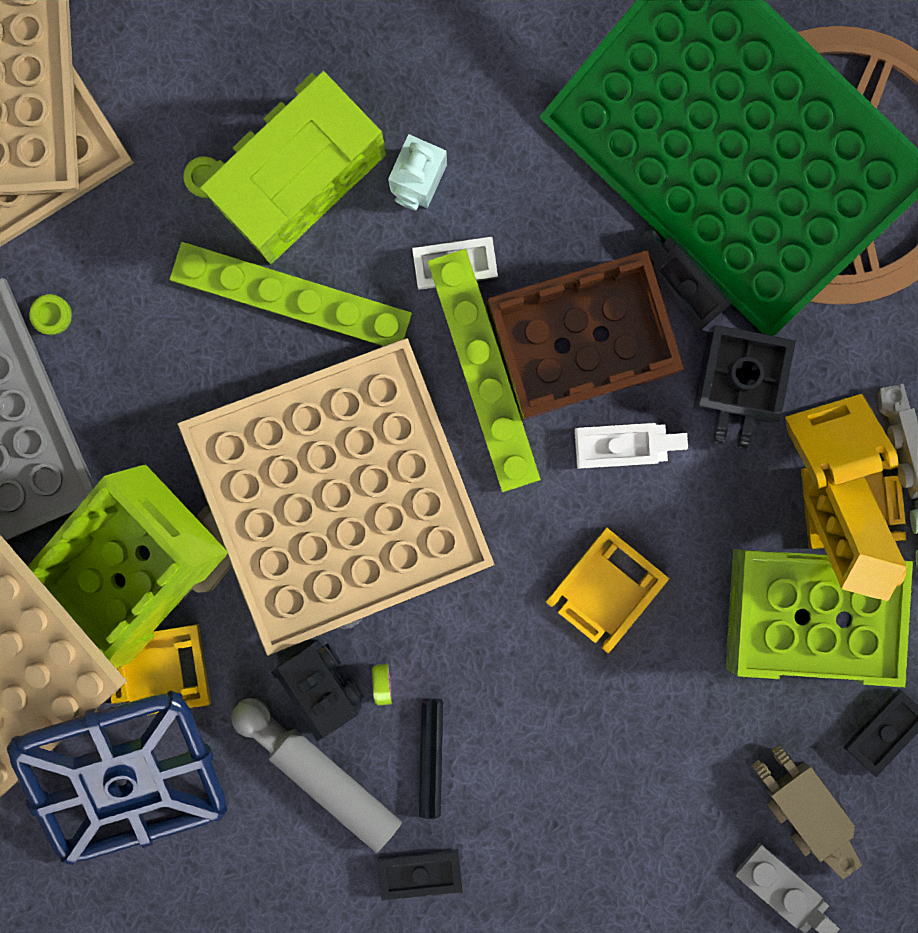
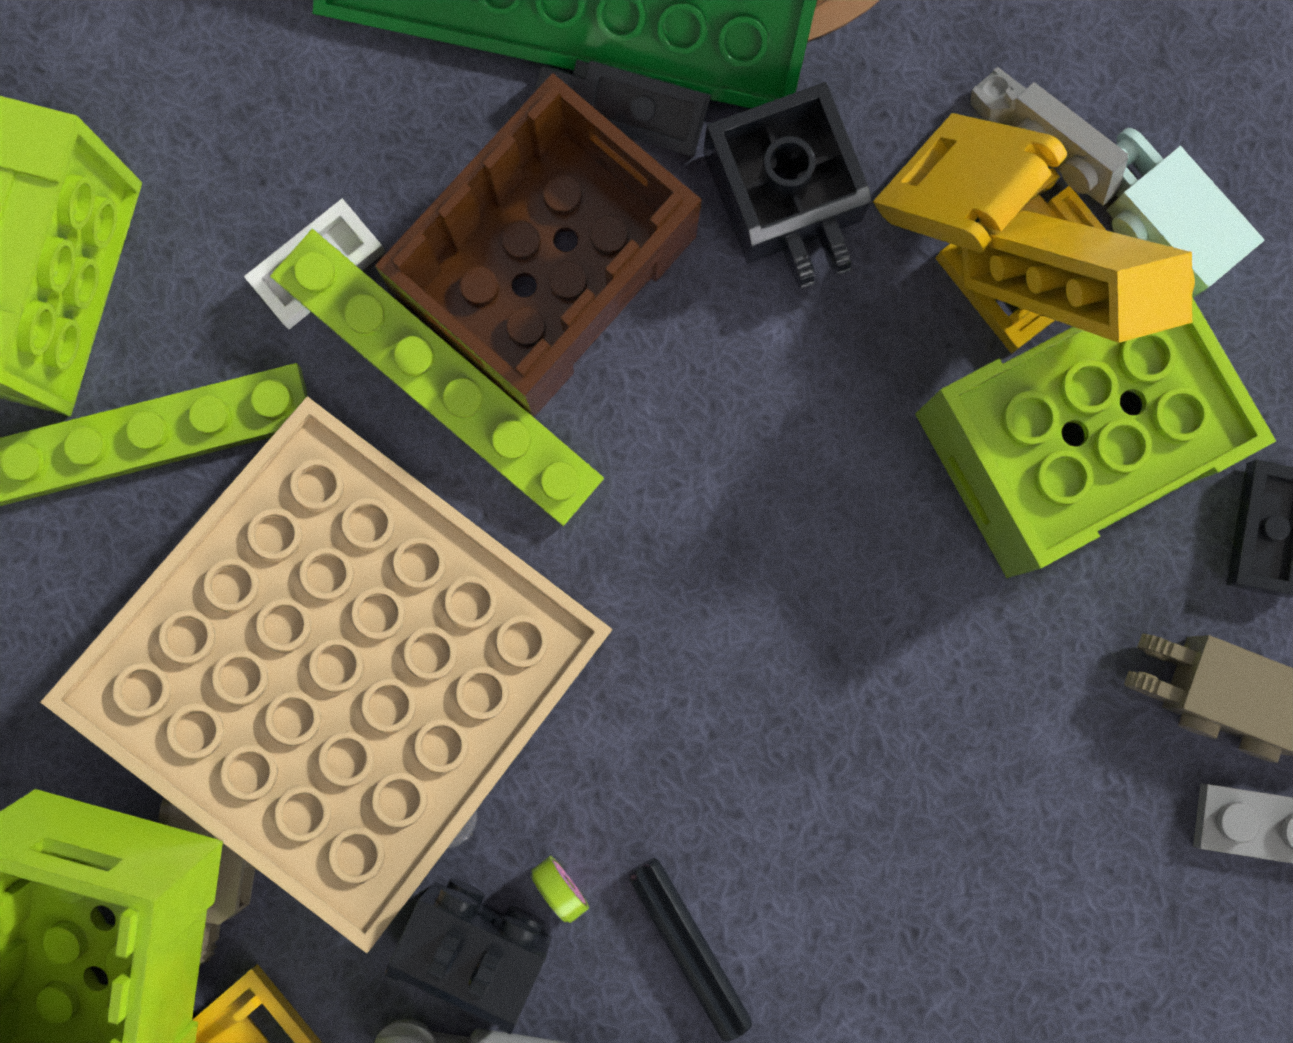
camera: 35 degrees left, 5 degrees down
(417, 173) = (184, 166): light aqua brick -> none
(604, 596) = (782, 580): yellow container -> none
(625, 445) = (688, 363): white hinge -> none

